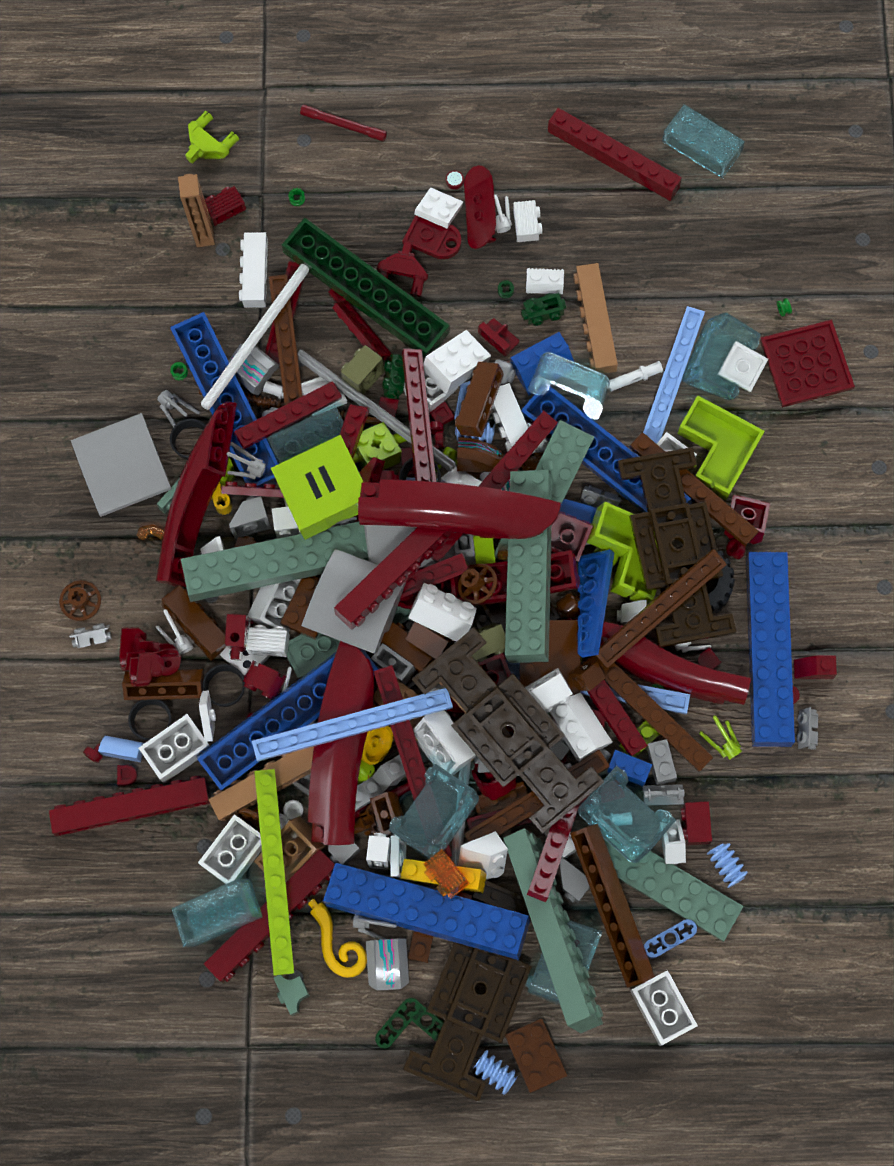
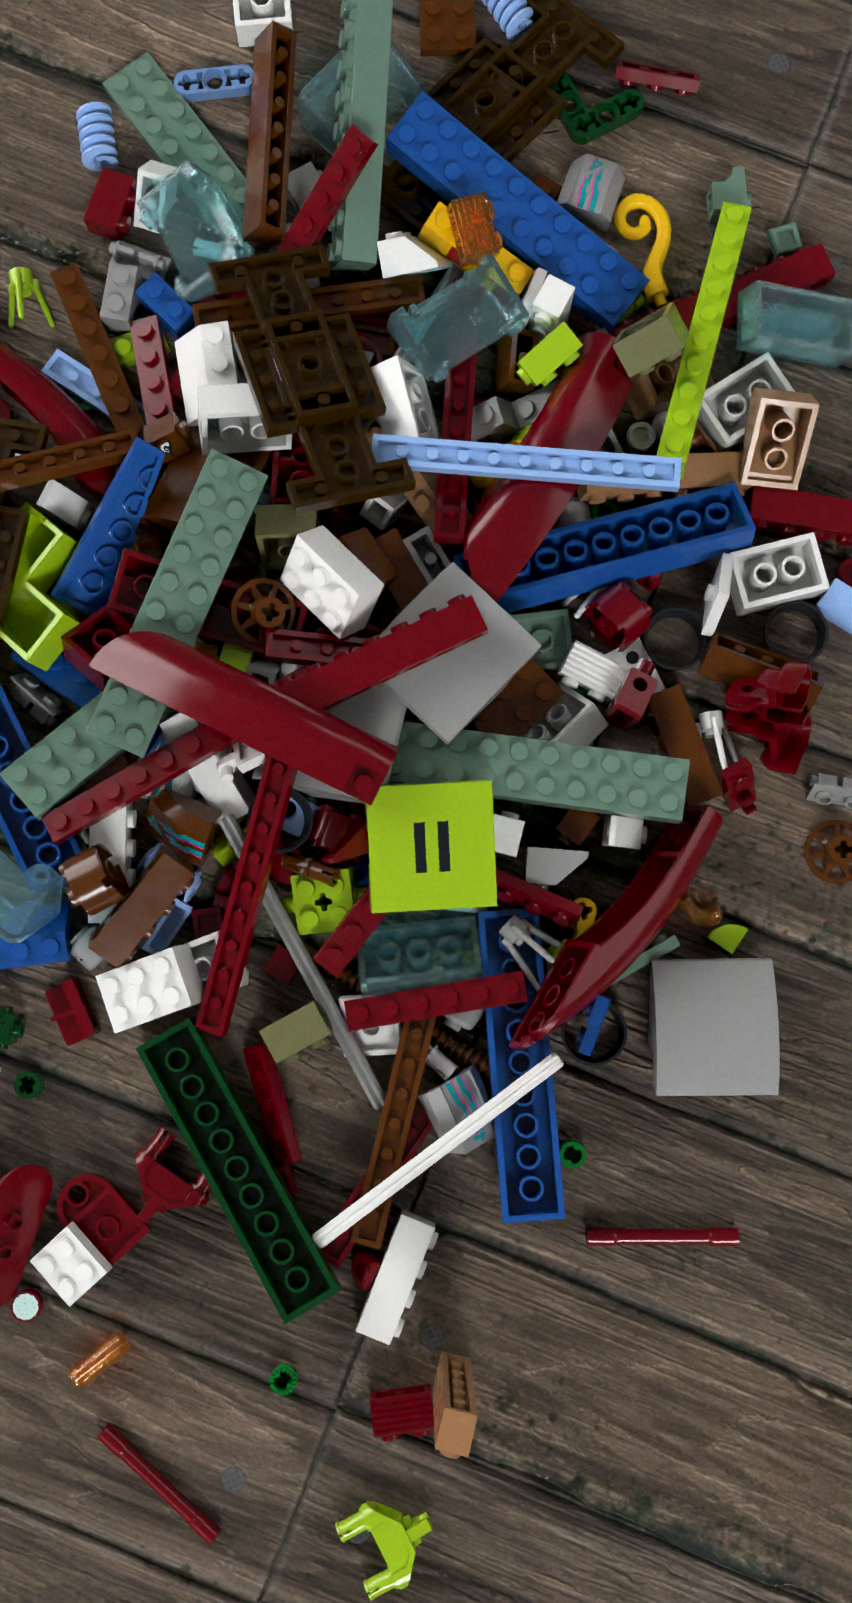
camera: 165 degrees left, 10 degrees up
(82, 358) = (712, 1236): none -> dark red piece
(129, 525) = (727, 936): none -> lime tile
(152, 609) = (739, 786): none -> dark red plate
(169, 401) = (604, 1109): light grey plant -> none
(192, 435) = (596, 1012): none -> blue plate
(203, 828) = (777, 437): none -> medium nougat slope
(245, 983) = (784, 240): none -> sand green tile
(273, 266) = (365, 1269): none -> dark red tile
(304, 843) = (651, 340): none -> olive brick
(367, 814) = (542, 360): none -> lime brick
(373, 1063) = (657, 77): none -> dark red plate
(390, 456) = (310, 868): none -> reddish brown axle
(394, 381) = (252, 1006): dark green brick -> none
(402, 168) = (99, 1360): none -> clear orange piece
(510, 399) = (94, 879): none -> reddish brown brick

